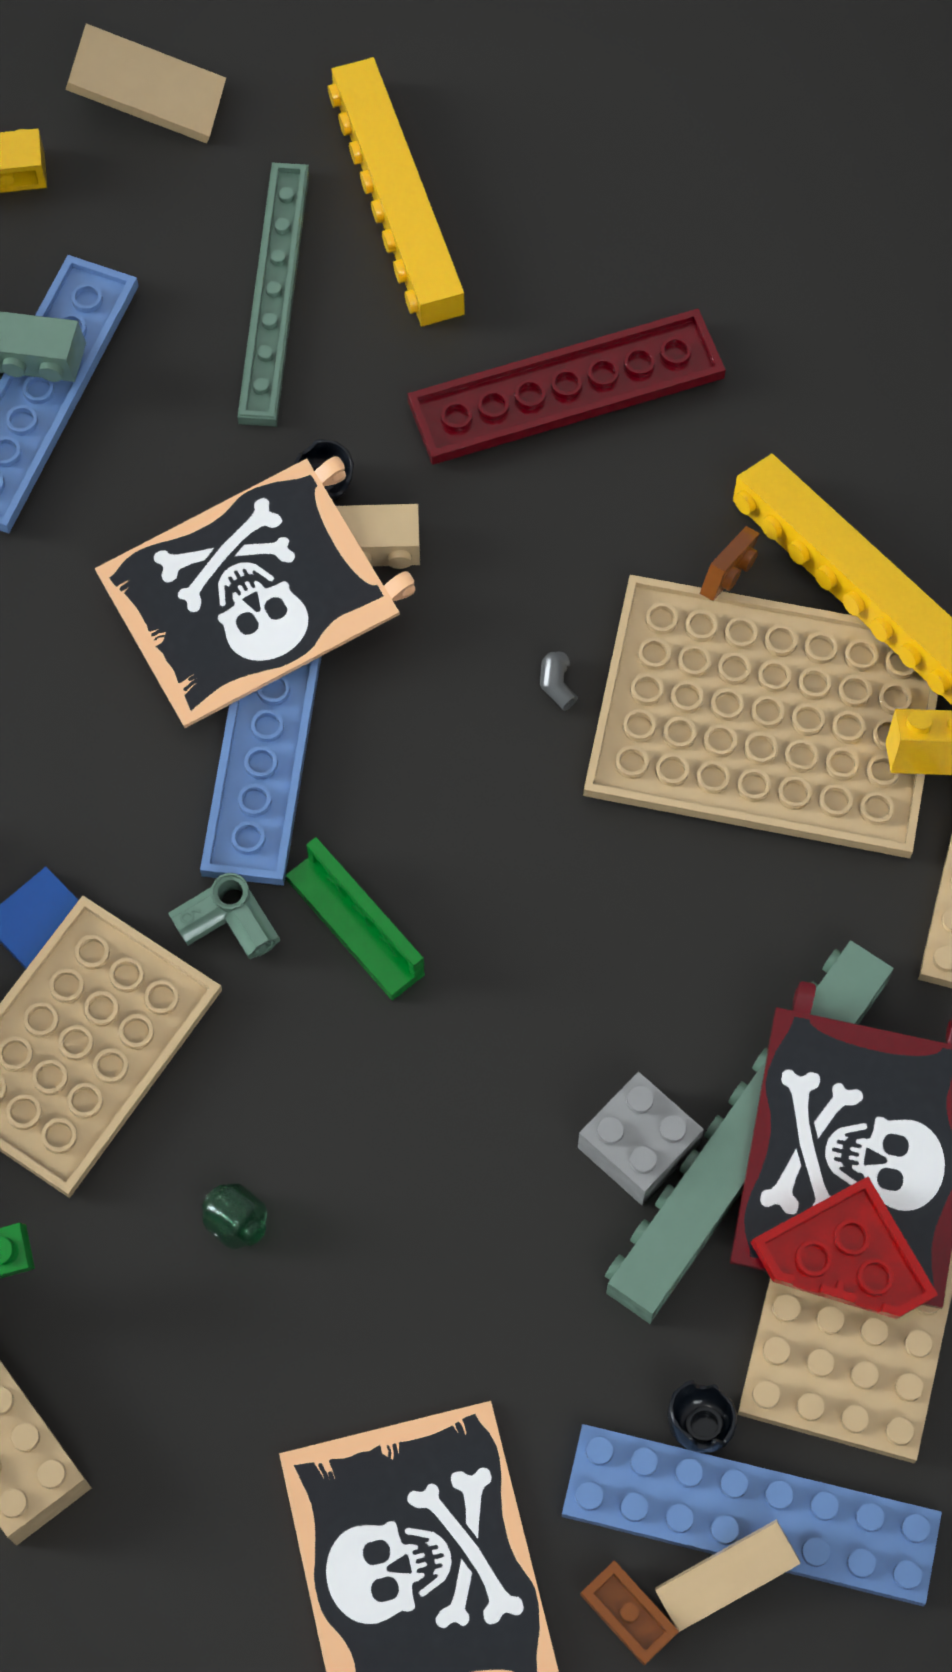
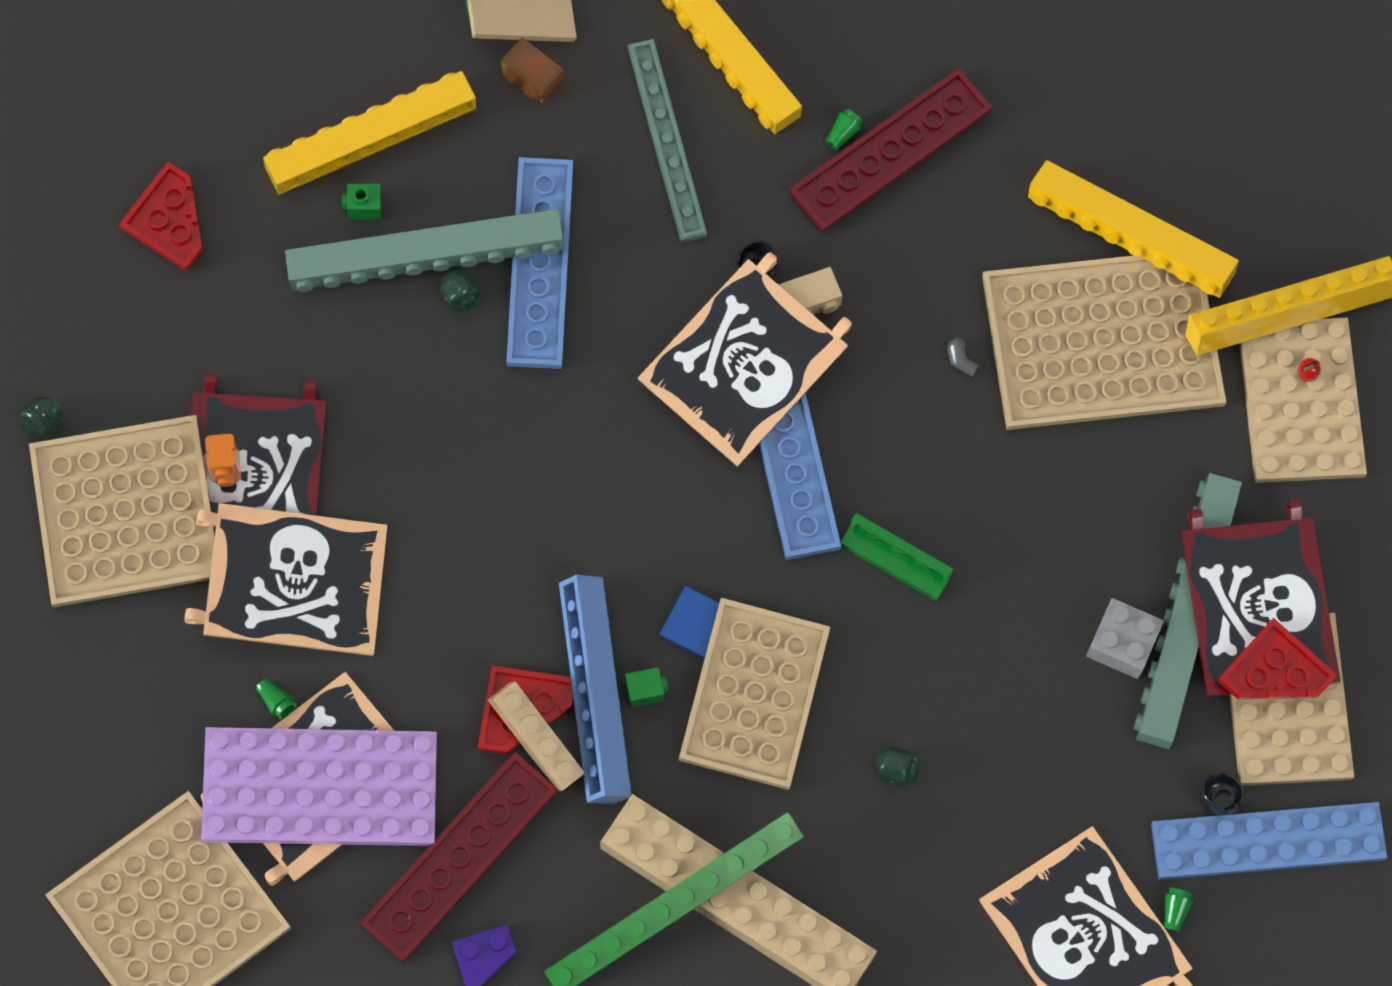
camera: 25 degrees left, 5 degrees up
(133, 158) = (531, 70): none -> clear orange brick
(244, 918) = (803, 581): sand green piece -> none
(513, 342) = (844, 128): none -> green cone
(569, 1571) = (1176, 908): none -> green cone
(629, 1613) = (1219, 920): dark orange plate -> none
(727, 1575) = (1269, 879): tan tile -> none
(728, 564) = (1046, 253): dark orange plate -> none

